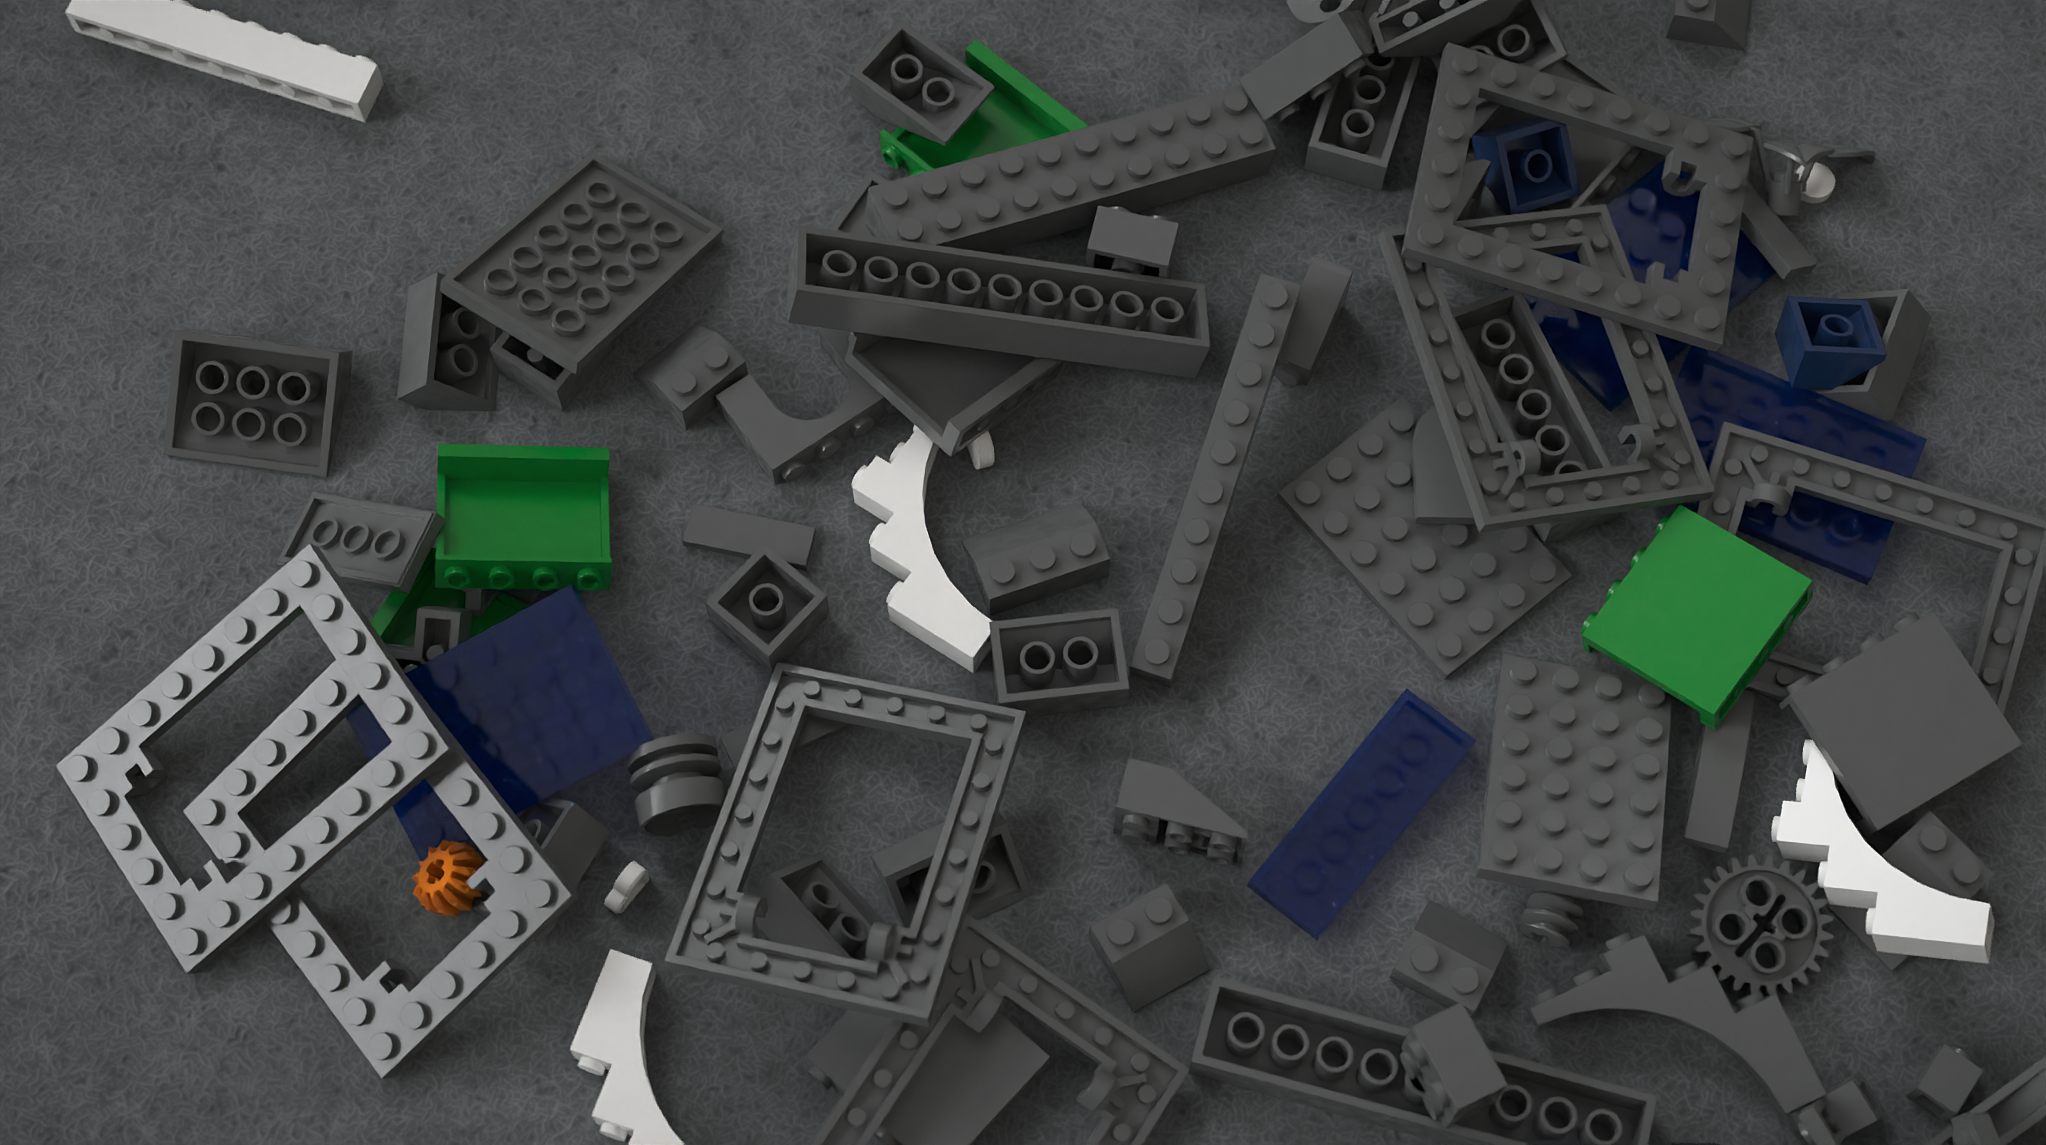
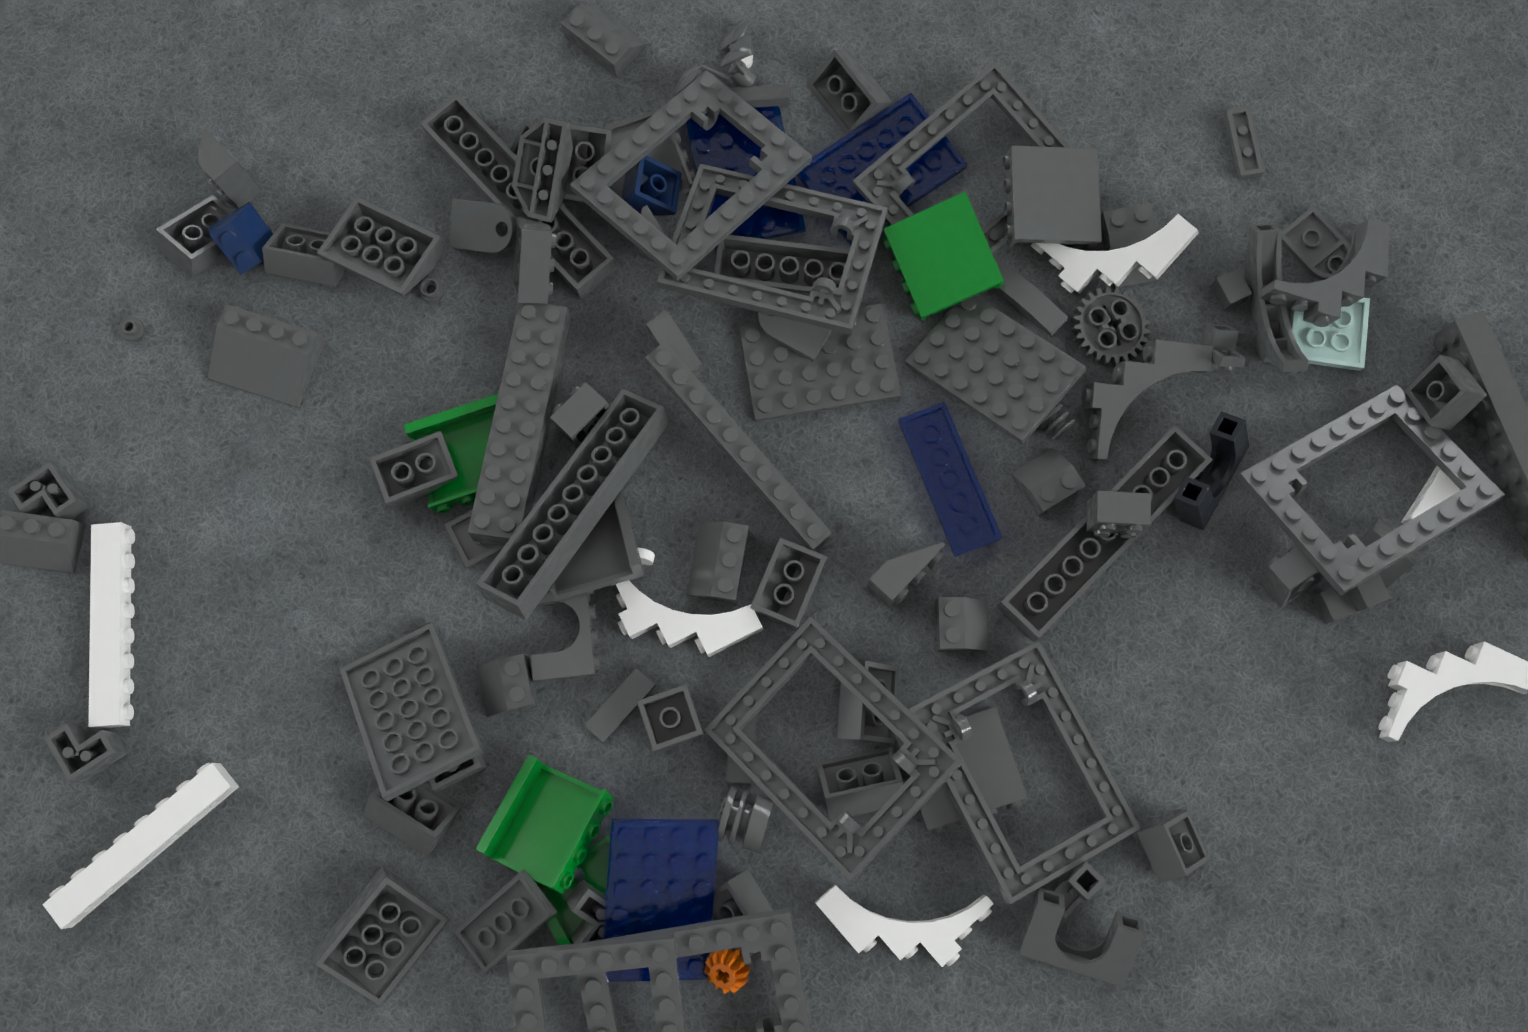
camera: 55 degrees left, 10 degrees up
(627, 887) = (782, 875): white tile -> none
(1827, 341) = (836, 105): dark blue slope -> none

